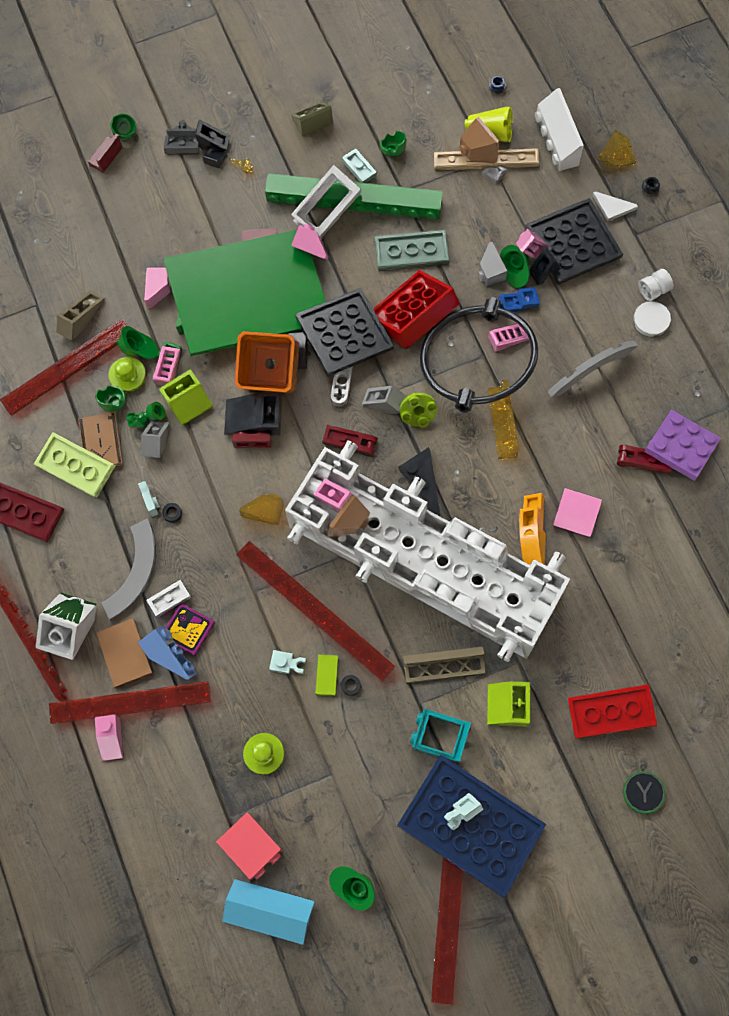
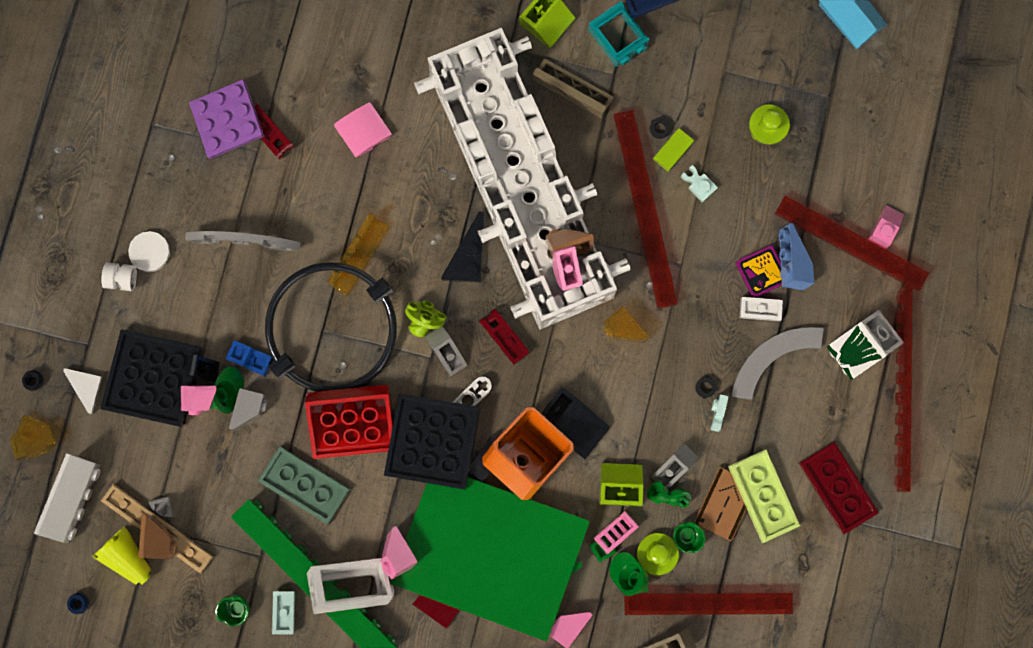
camera: 150 degrees left, 10 degrees up
(123, 653) = (830, 292): medium nougat tile -> none
(246, 440) = (596, 405): dark red plate -> none
(250, 847) = (829, 60): coral brick -> none
(506, 343) = (303, 335): bright pink slope -> none
(531, 529) = (414, 140): light orange slope -> none

